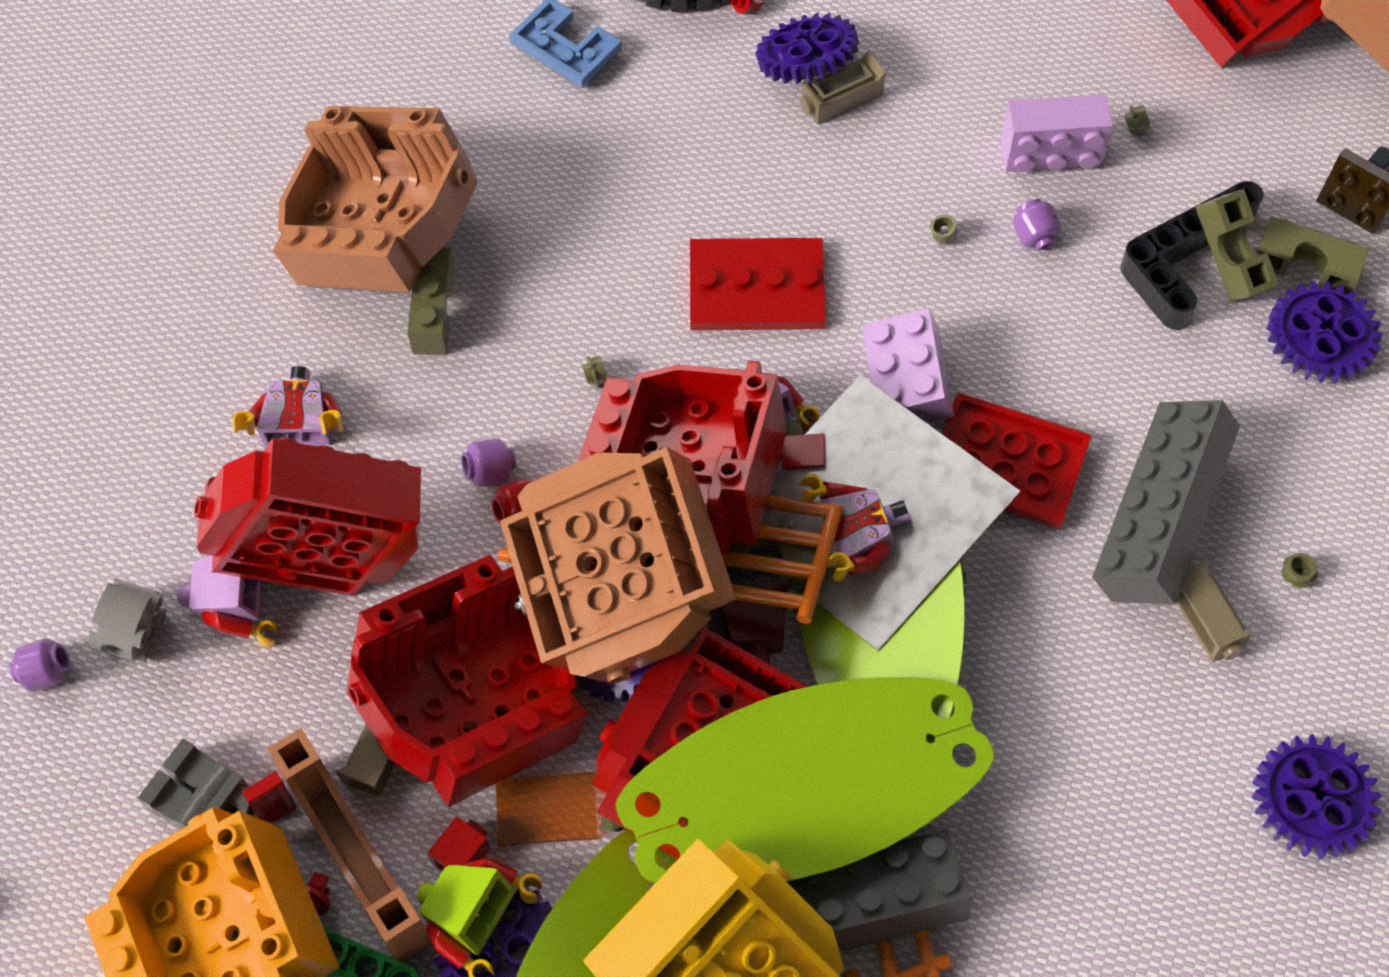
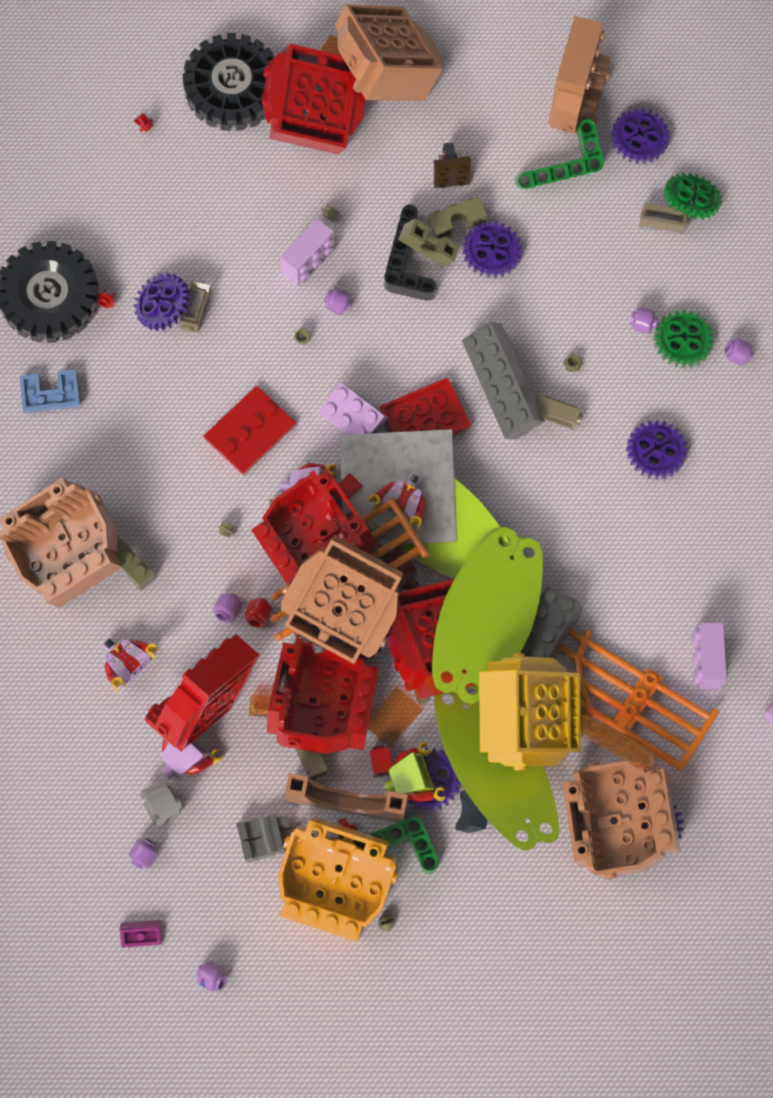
camera: 50 degrees left, 10 degrees up
(269, 798) = (295, 812): red tile -> none

